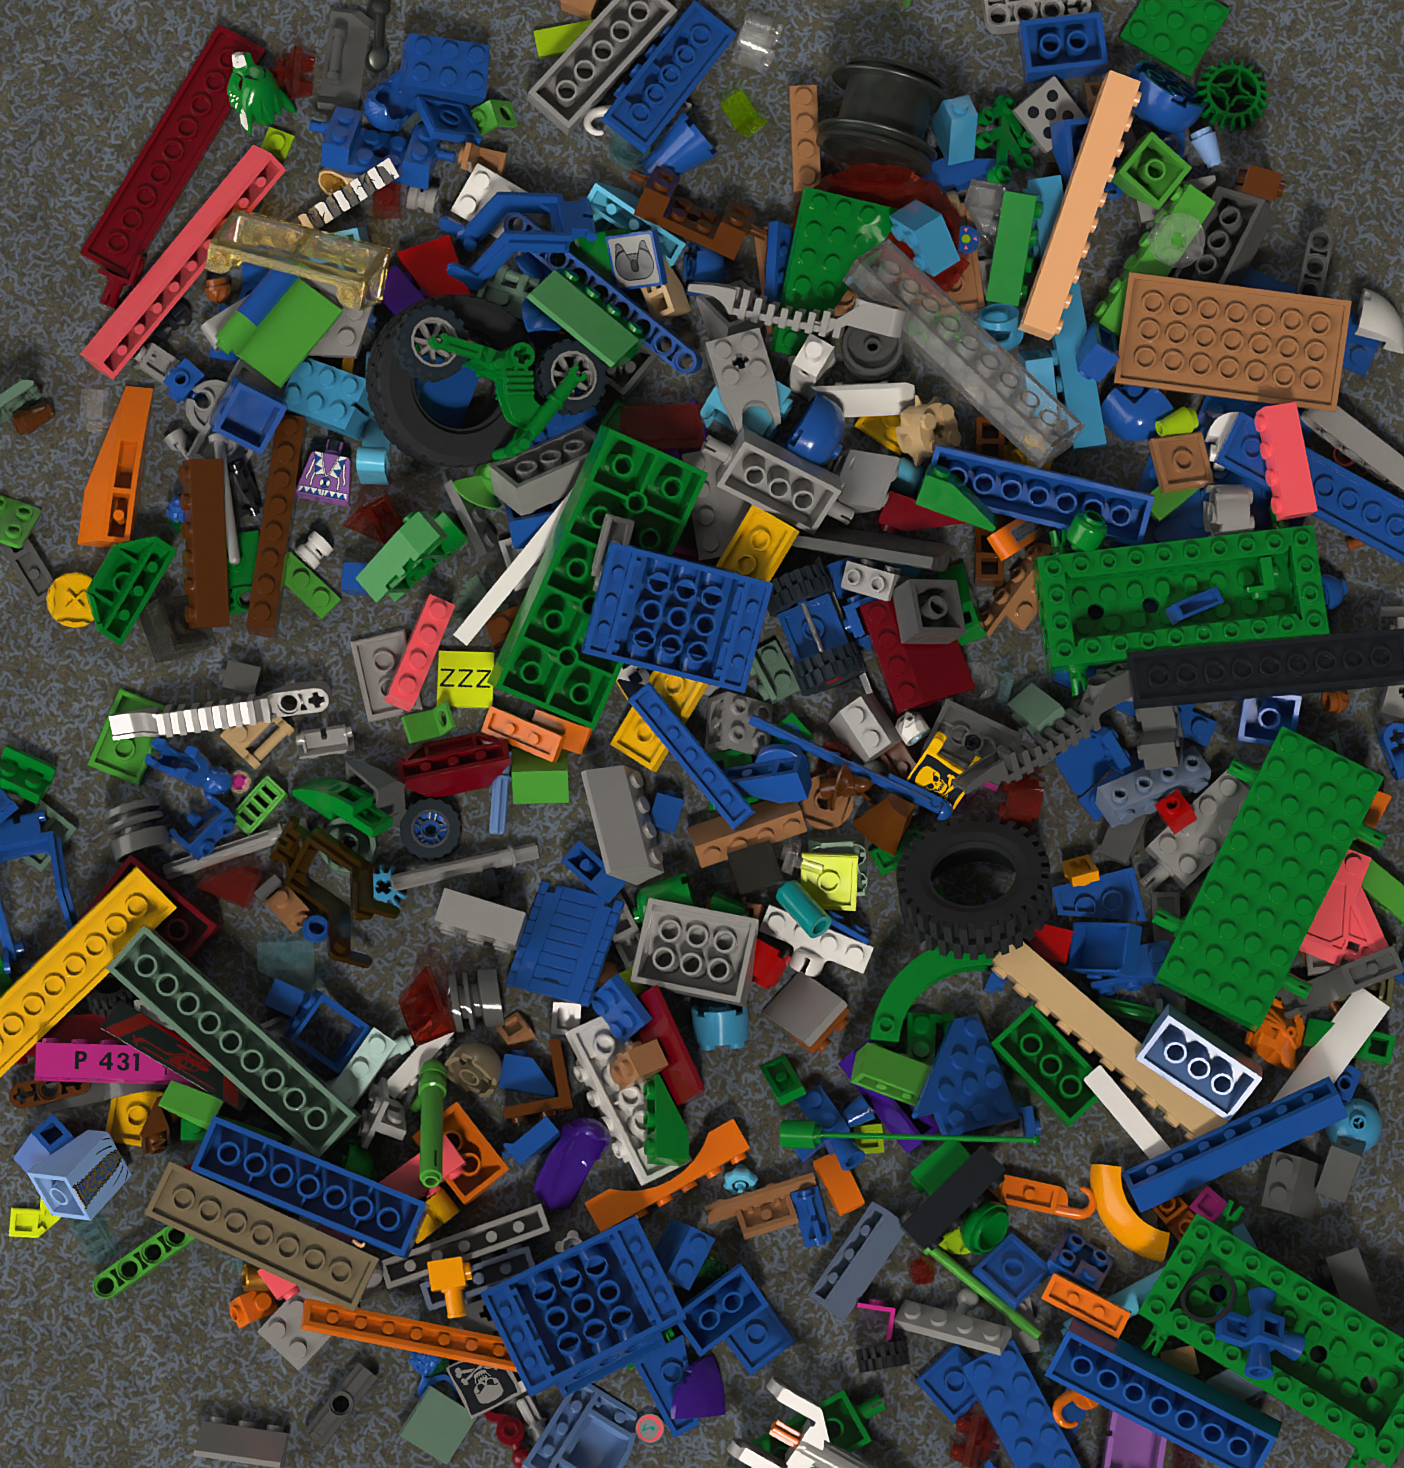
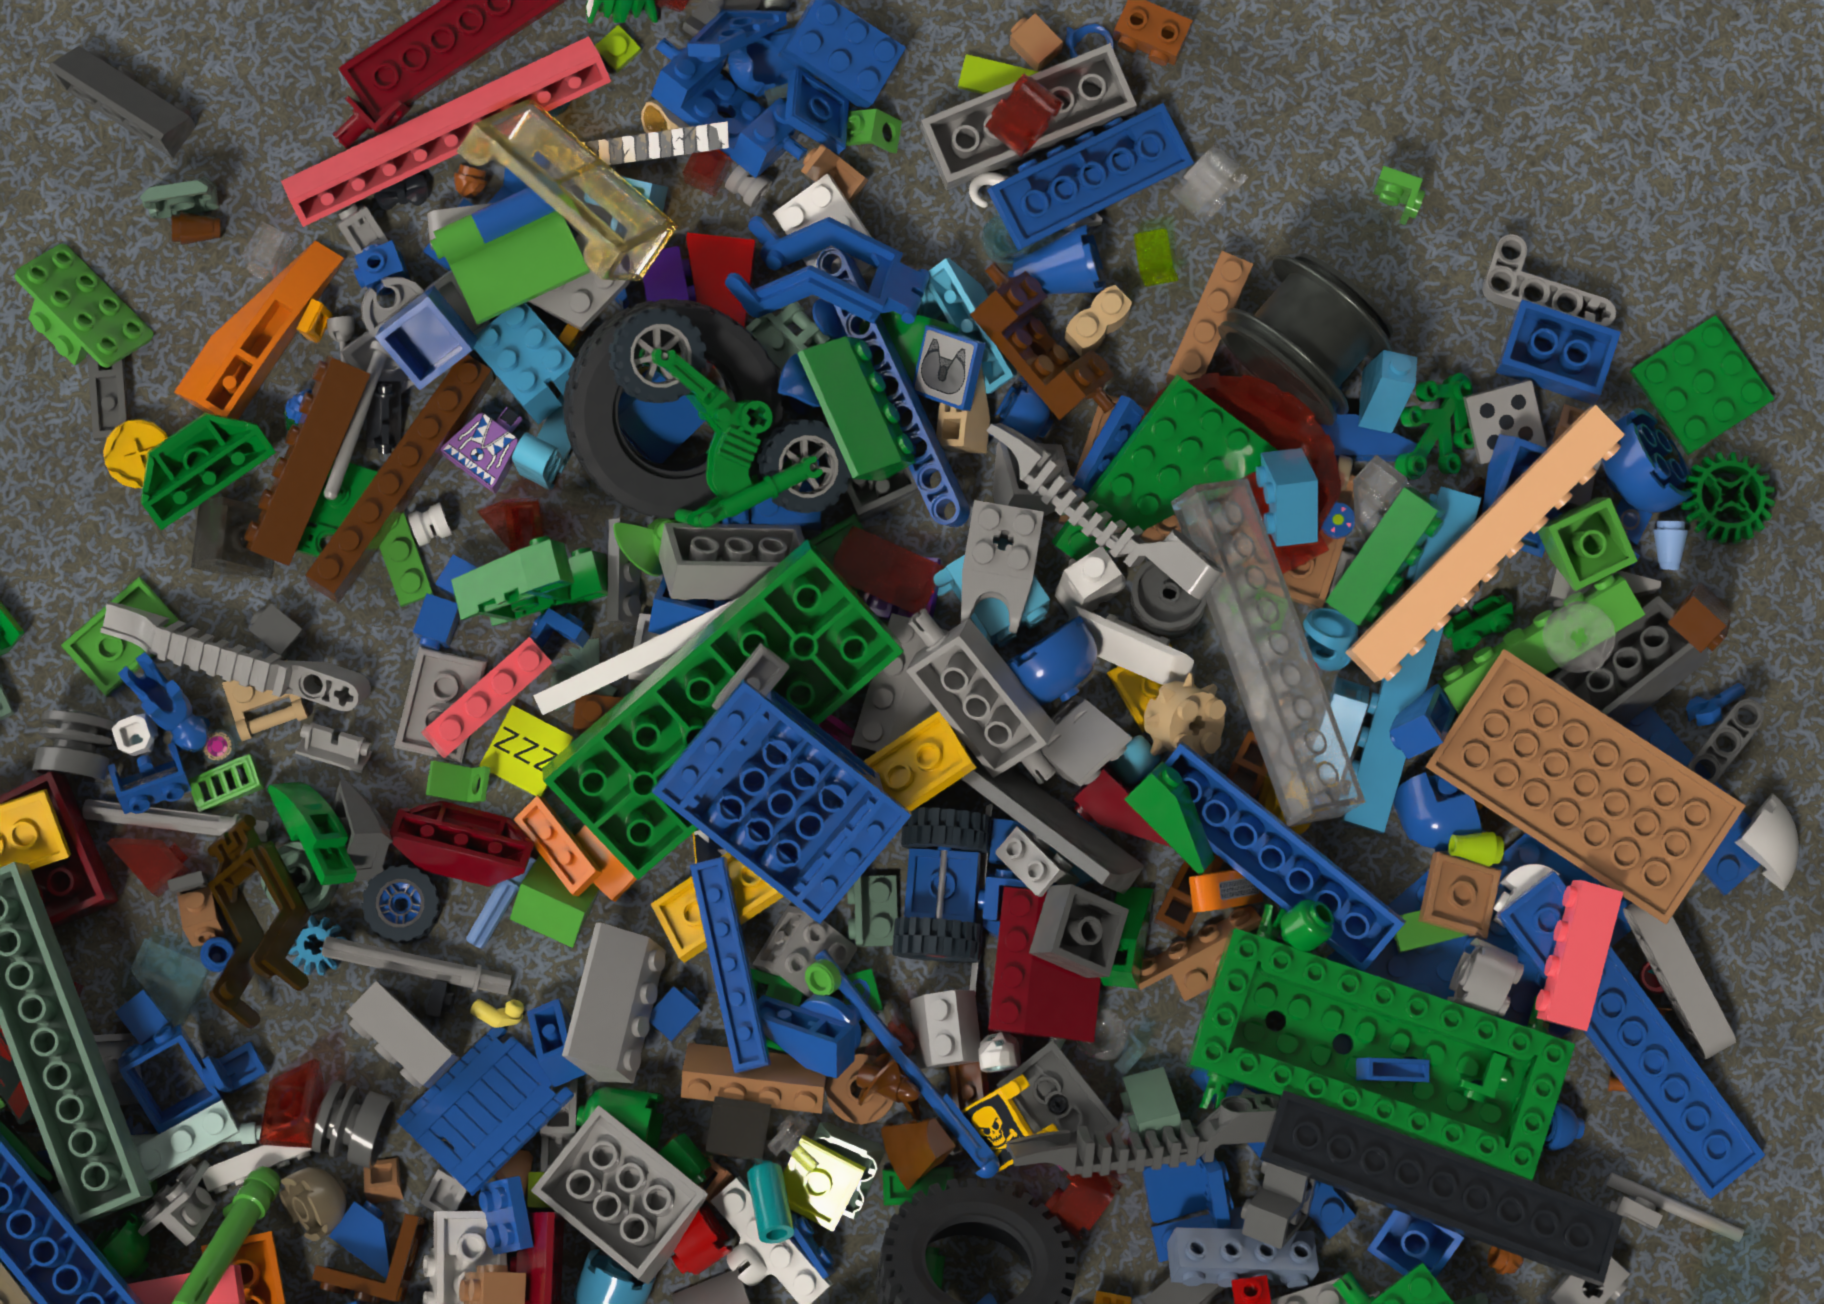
camera: 30 degrees right, 0 degrees up
(155, 443) = (314, 321): none -> light orange tile
(177, 800) = (135, 734): none -> white rock
(355, 617) = (436, 622): none -> blue brick
(359, 90) = (733, 30): none -> blue wing
(371, 1002) = (234, 1069): none -> blue bracket
(451, 575) = (567, 626): none -> blue bracket
(541, 876) = (499, 1017): none -> light yellow arm
(602, 53) = (1023, 115): none -> clear red brick
(727, 173) = (1106, 315): none -> tan brick
(761, 734) = (823, 977): none -> bright green tile
(1107, 255) = (1493, 616): none -> green hinge
(1292, 251) = (1709, 711): none -> blue bar

